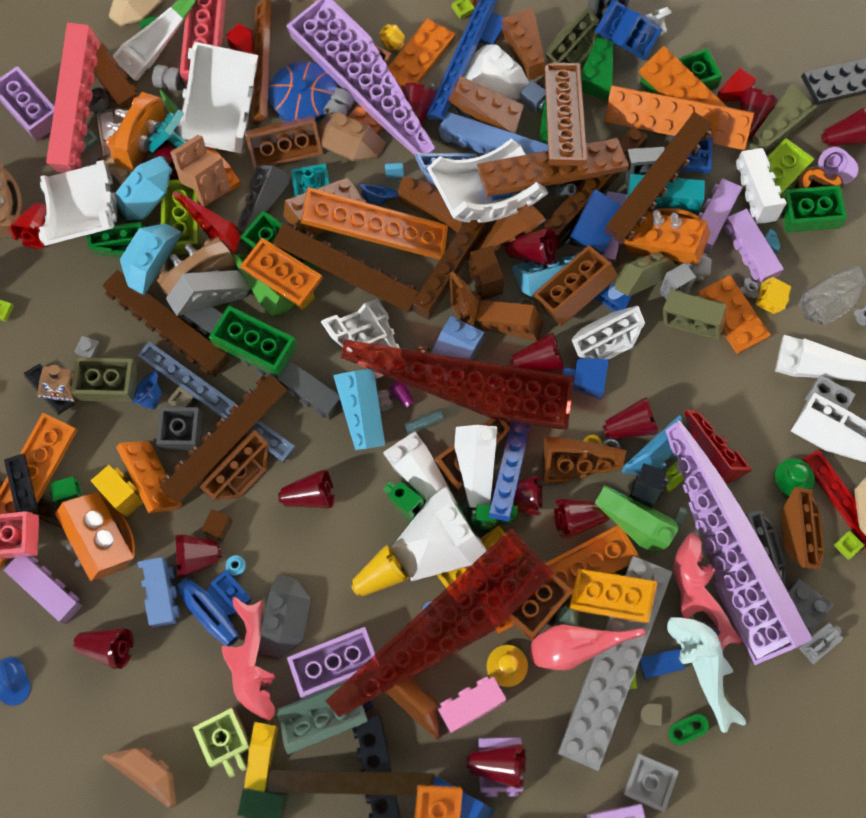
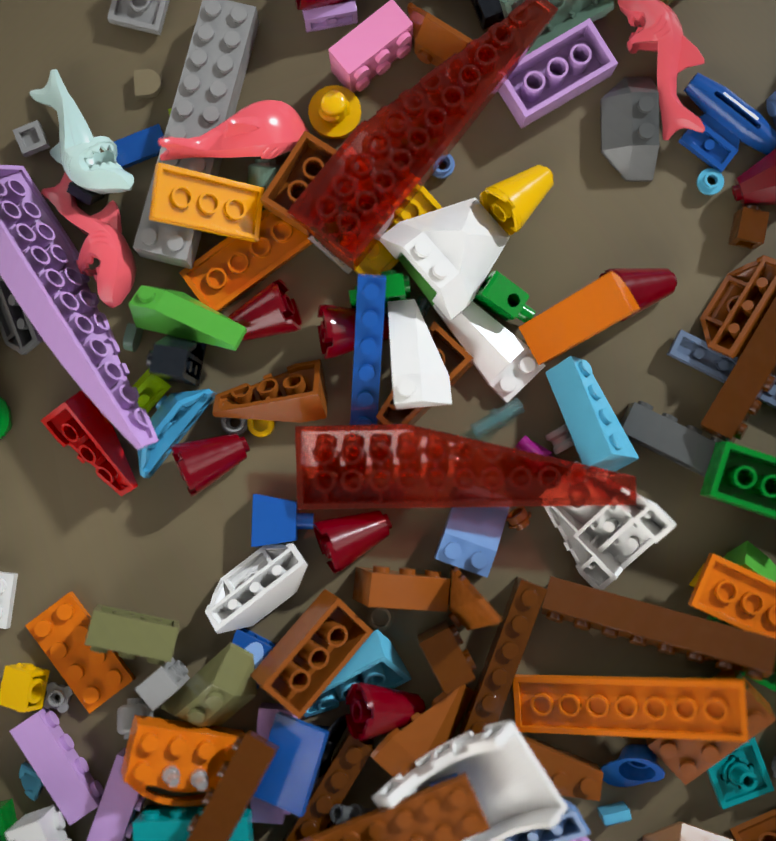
camera: 165 degrees right, 15 degrees up
(355, 471) = (579, 317): none -> orange brick
(687, 730) = (99, 69): green plate -> none
(746, 682) = (31, 138): none -> light grey plate

